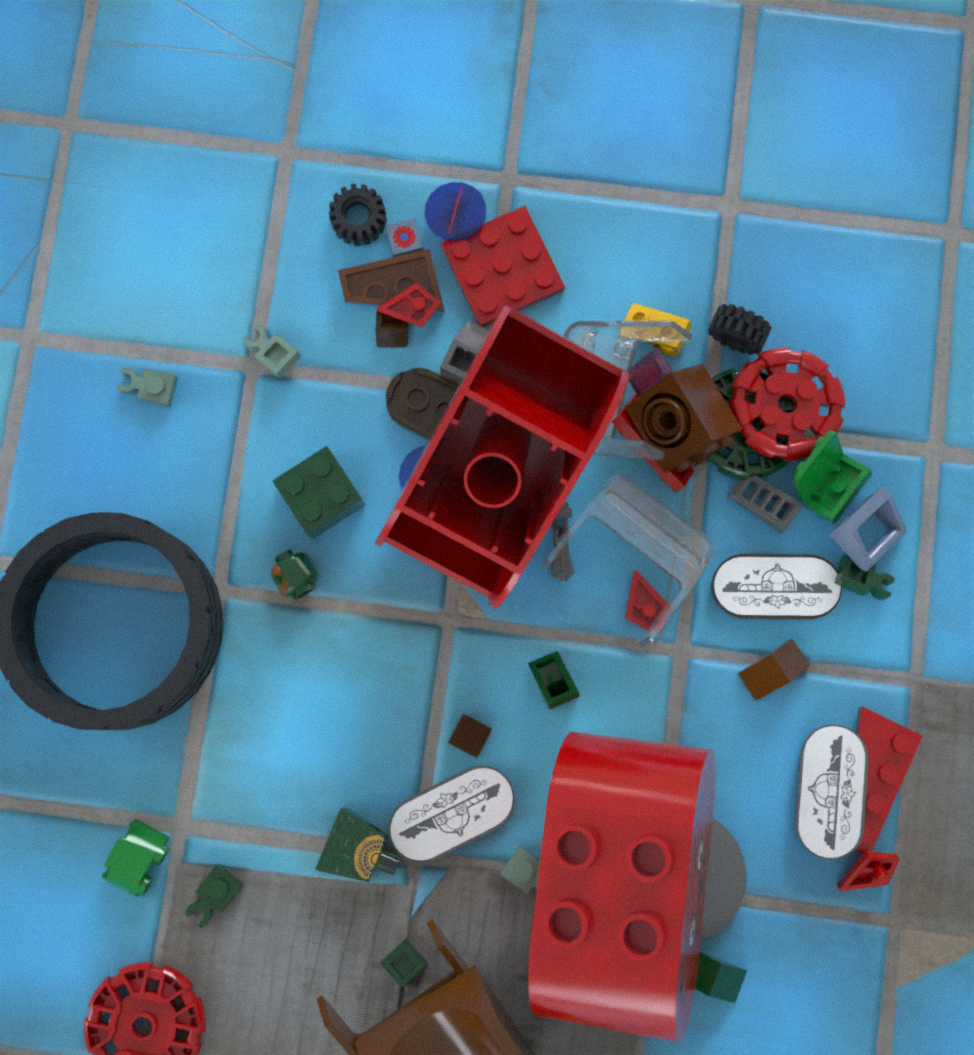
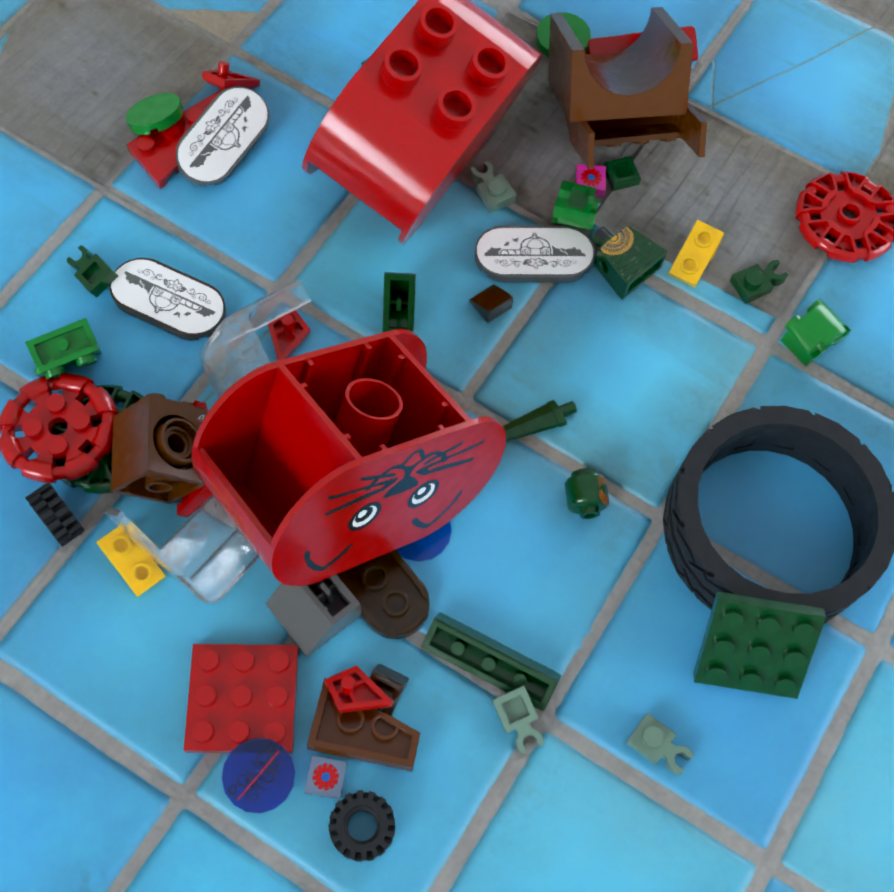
camera: 160 degrees left, 15 degrees down
(88, 490) = (758, 644): none -> dark green plate
(287, 890) = (696, 253): none -> yellow plate
(315, 391) = (490, 659): none -> dark green slope
(318, 492) = (532, 552): dark green brick -> none
(370, 629) = (539, 420): none -> dark green bar
(425, 939) = (592, 177): none -> dark pink tile
(433, 886) = (575, 206): none -> green cylinder
(648, 371) = (164, 508): clear pink slope -> none
(774, 670) = (210, 238): reddish brown slope -> none
(781, 498) = (123, 347): dark grey slope -> none
(847, 535) = (63, 309): sand blue tile -> none
(916, 783) = (154, 112): none -> green tile

